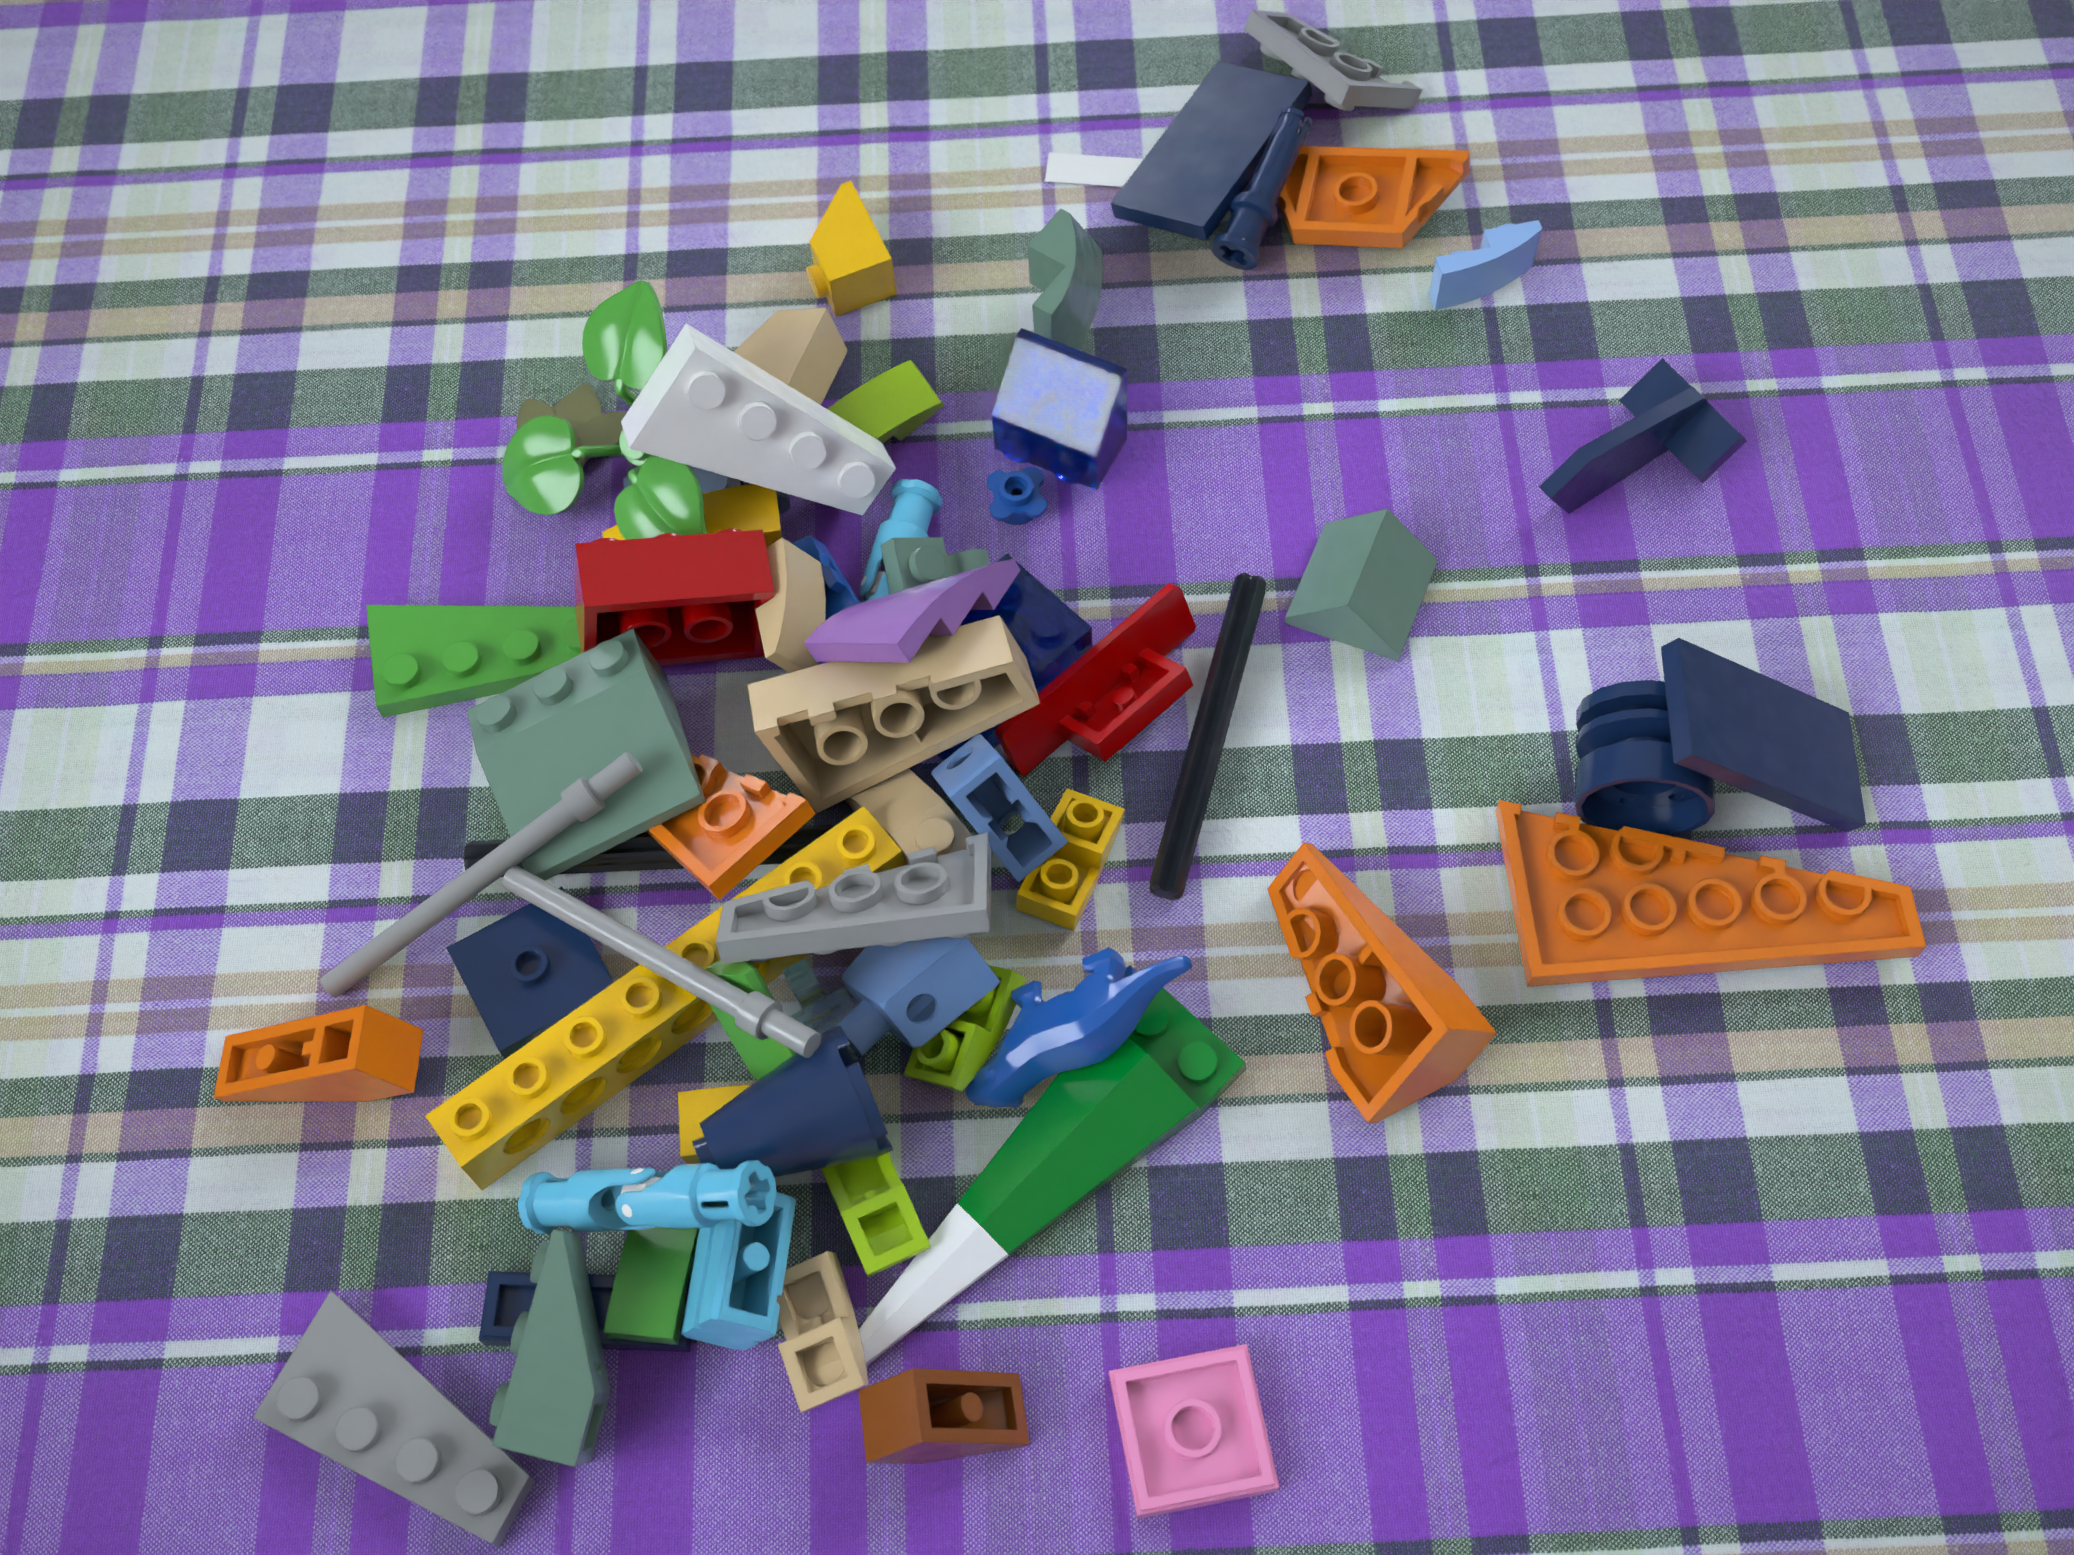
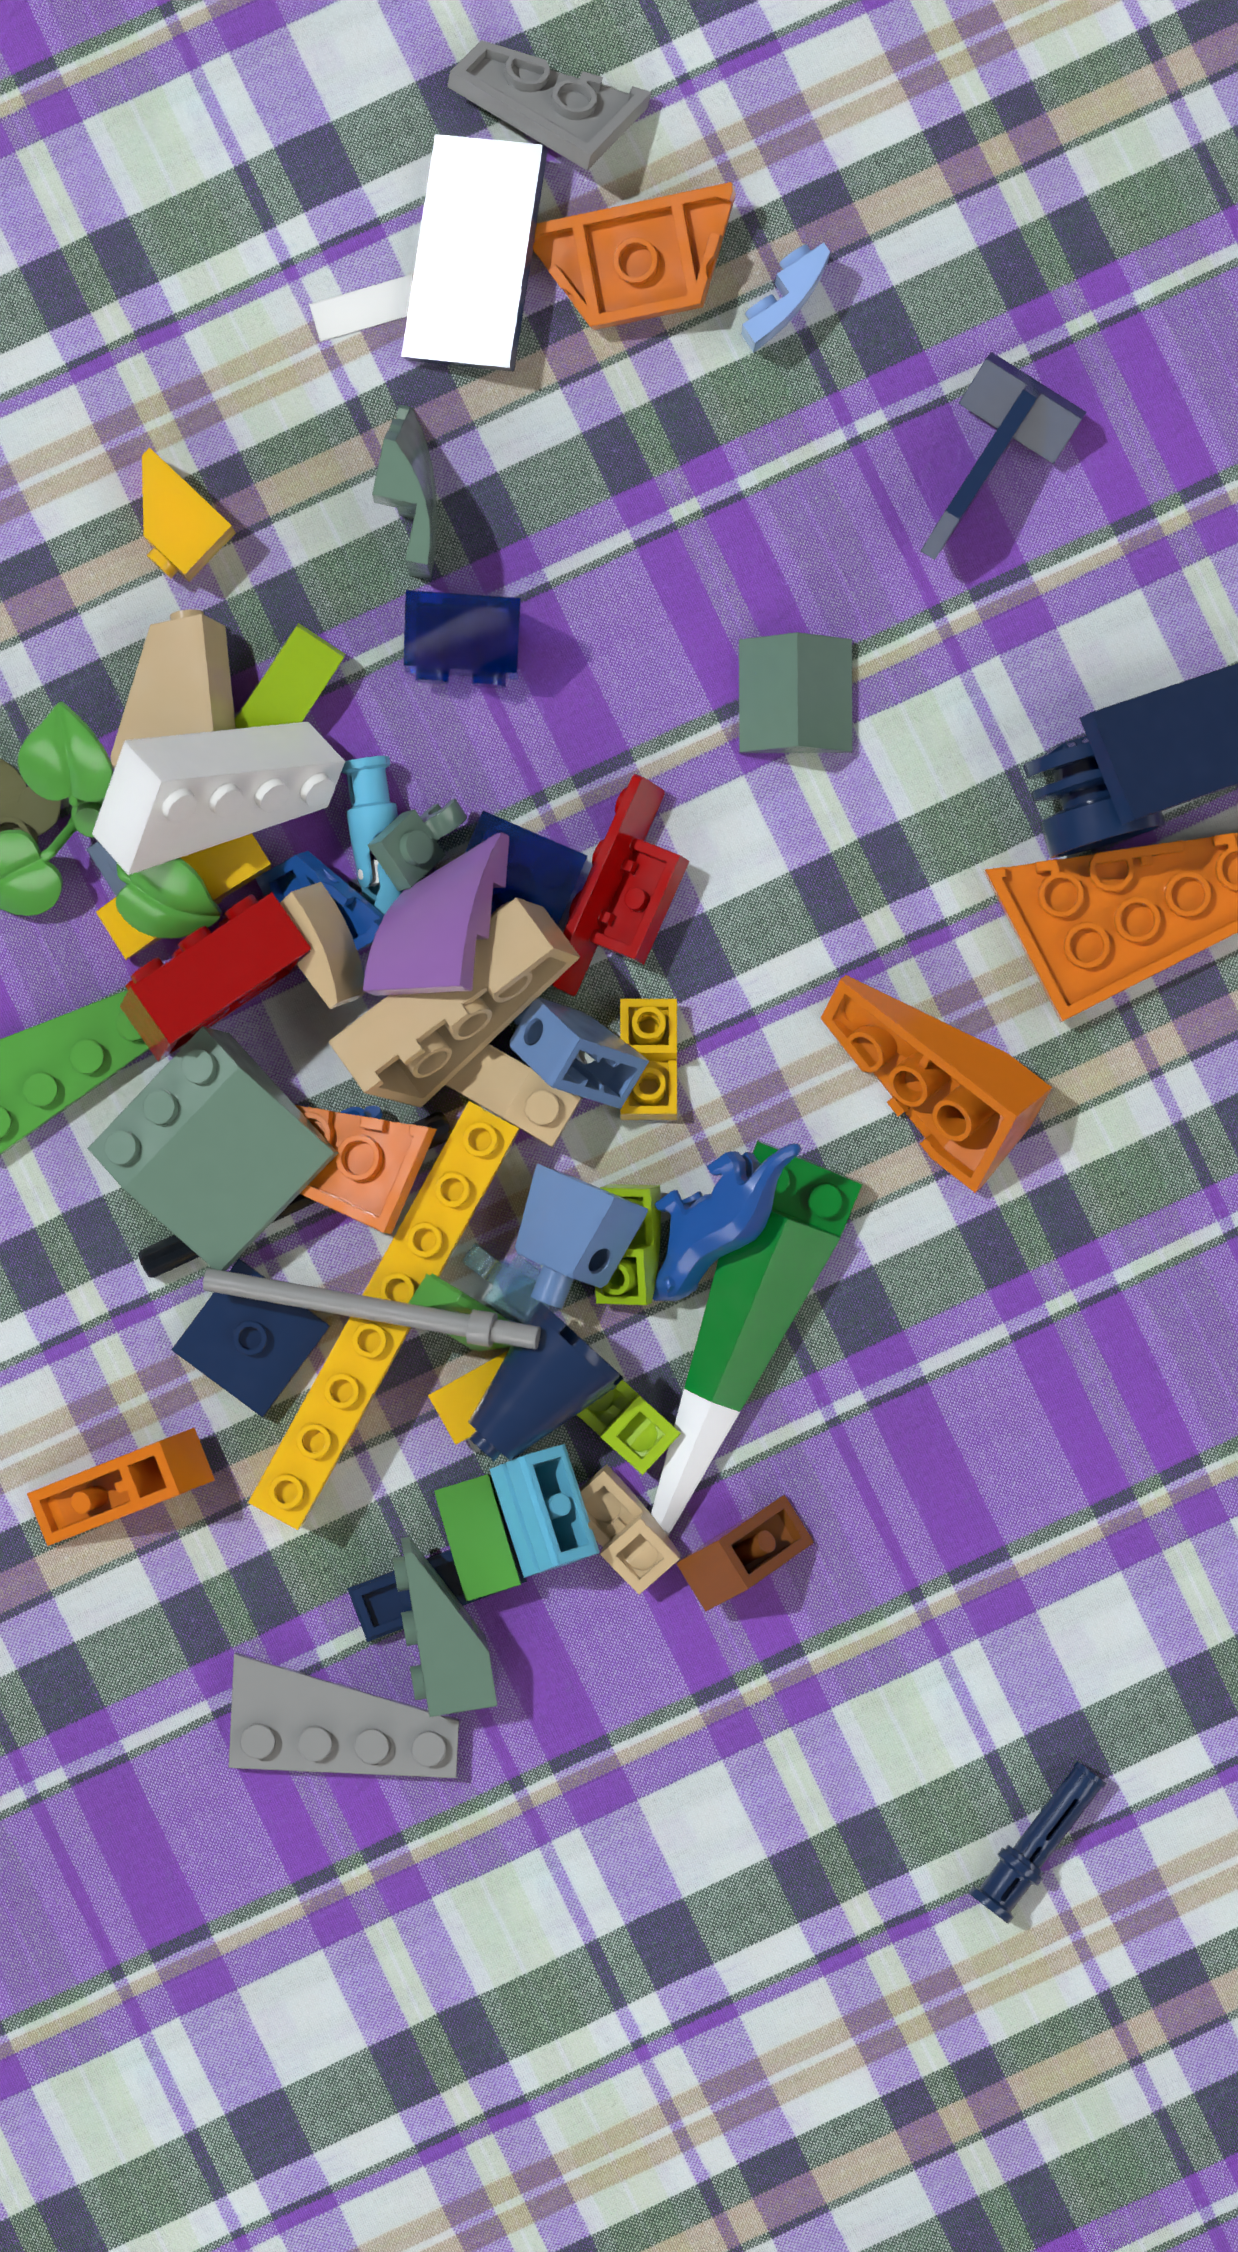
camera: 30 degrees left, 25 degrees up
(578, 802) = (239, 1203): light grey bar -> none
(647, 1198) = (455, 1495): medium azure piece -> none
(864, 908) = (543, 1191): light grey wing -> none
(1020, 508) = (454, 706): blue plate -> none
(1193, 1431) = (930, 1483): bright pink tile -> none
(1207, 738) = (718, 893): black axle -> none
(1255, 209) = (547, 317): dark blue pin -> none

